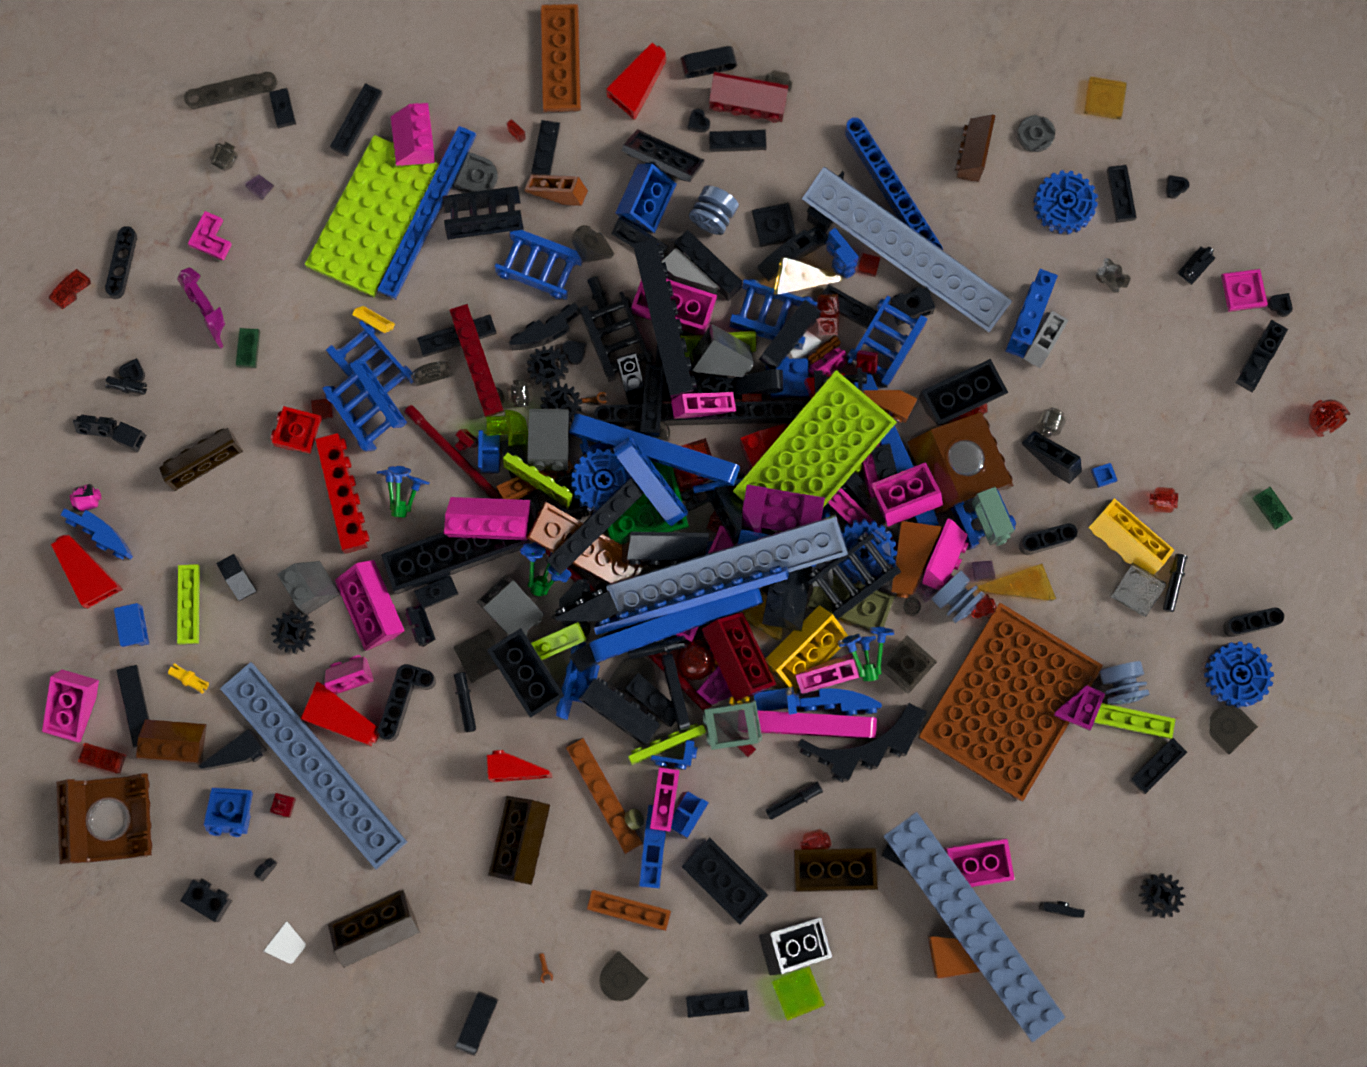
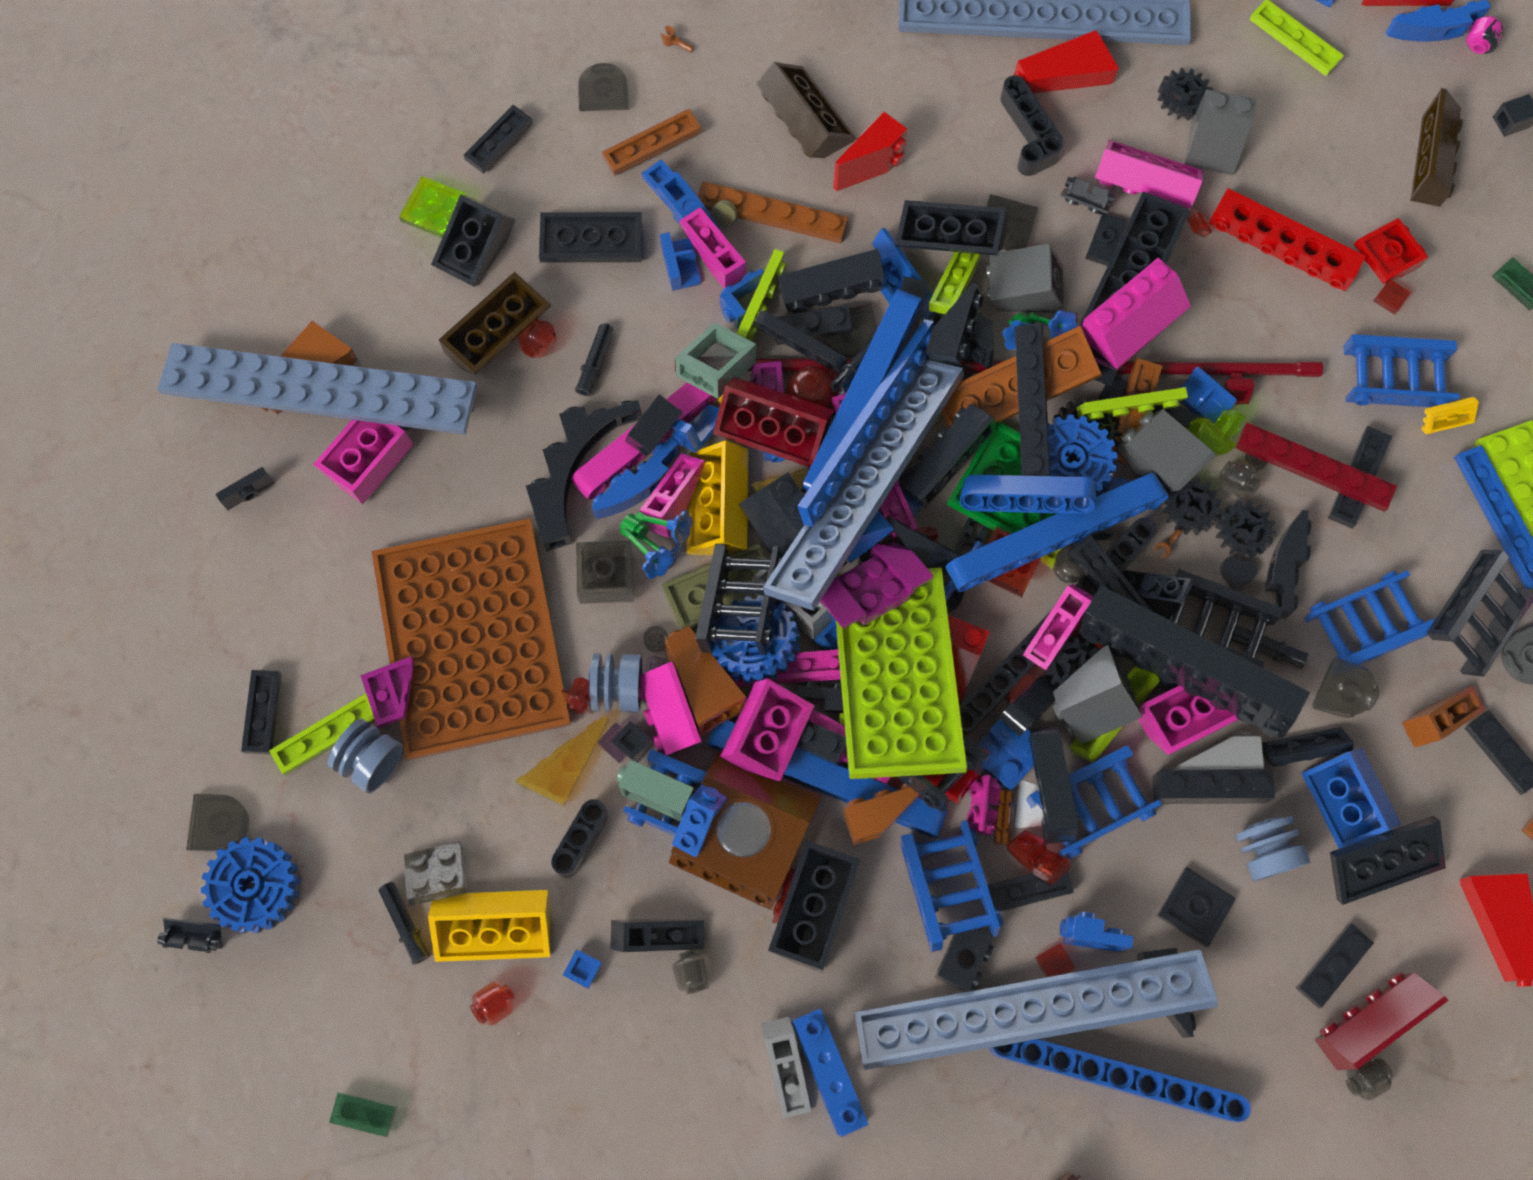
camera: 135 degrees right, 5 degrees down
(236, 577) = (1286, 92): black slope -> none
(348, 675) = (1100, 95): dark pink slope -> none
(377, 548) = (1198, 223): none -> clear red tile
(382, 403) = (1361, 340): blue fence -> none
(399, 507) = (1261, 285): plant -> none
(432, 372) = (1338, 416): clear smoke tile -> none
(465, 702) = (976, 175): black axle -> none
(698, 121) = (1396, 944): black tile -> none
(708, 62) = (1464, 1025): black beam -> none
(794, 249) = (1147, 889): black slope -> none
(799, 276) = (1111, 862): clear yellow wing -> none
(806, 718) = (653, 425): none -> black hinge
(867, 361) = (947, 837): dark red tile -> none
(977, 560) = (632, 742): none -> black panel
(984, 480) = (697, 819): none -> blue bracket
(1165, 903) = (155, 577): black gear -> none
(1261, 617) = (266, 965): black beam -> none
(1295, 683) = (196, 935): none -> black hinge

